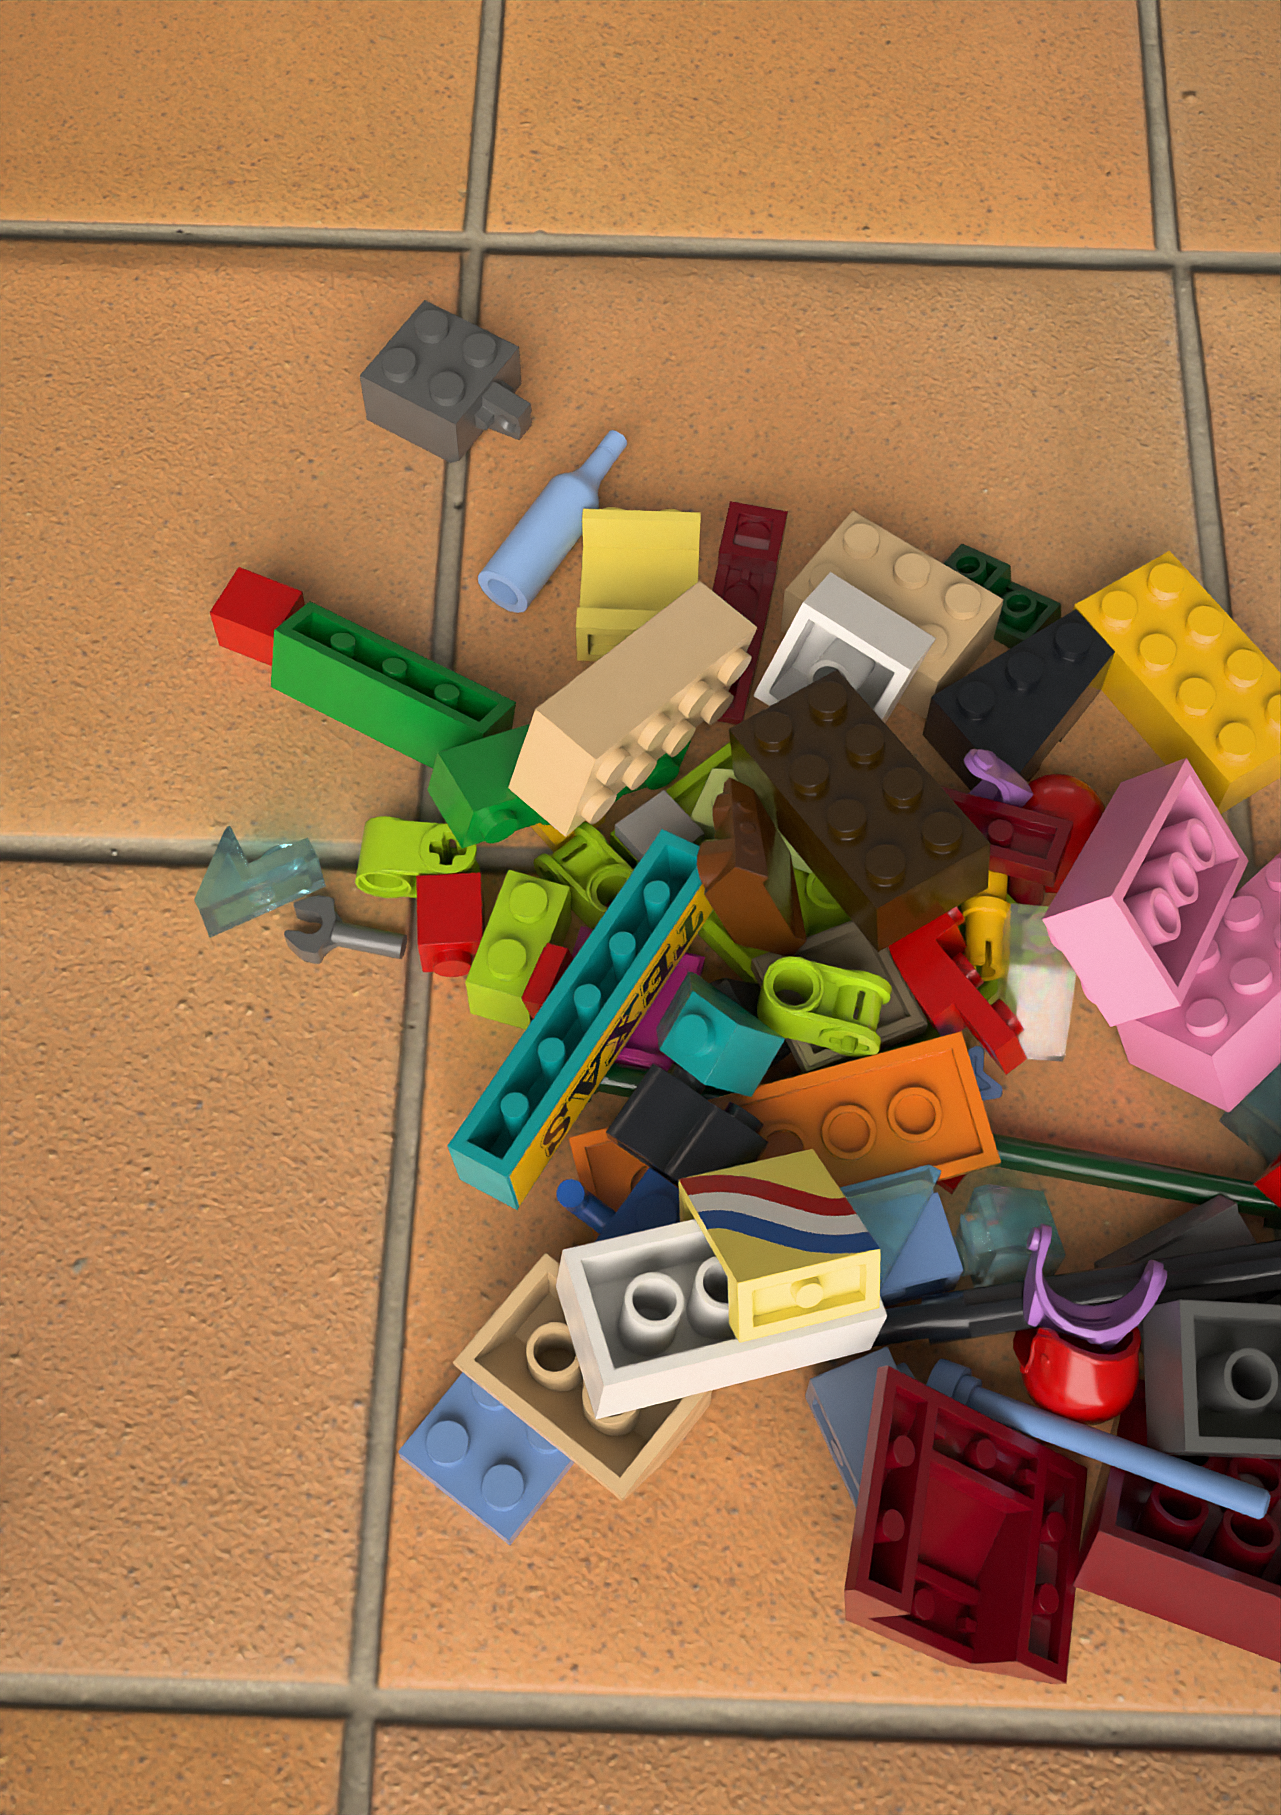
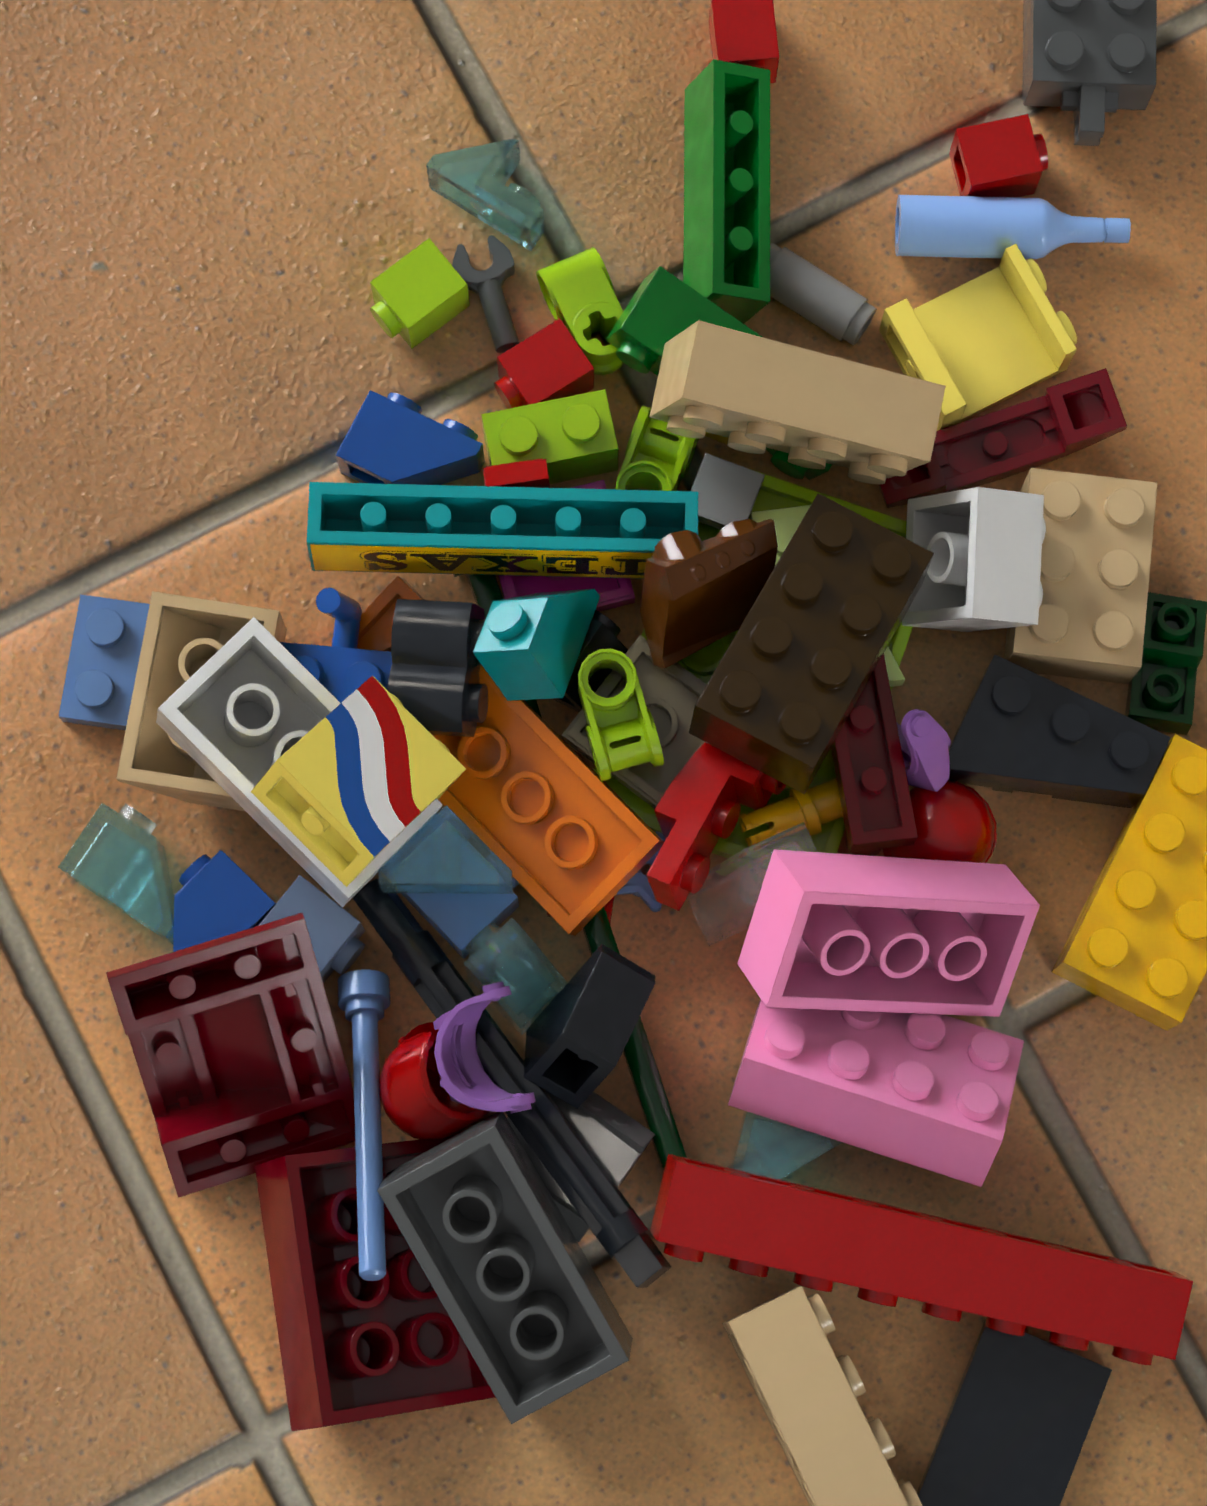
camera: 60 degrees right, 15 degrees up
(308, 988) = (418, 294): none -> lime brick
(443, 1075) = (401, 446): none -> blue slope
(495, 494) = (998, 158): none -> red brick
(533, 675) = (818, 296): none -> light grey piece
(707, 1552) = (125, 867): none -> clear light blue slope
(800, 1489) = (216, 902): none -> blue slope
(1098, 1193) = (586, 1026): none -> black slope

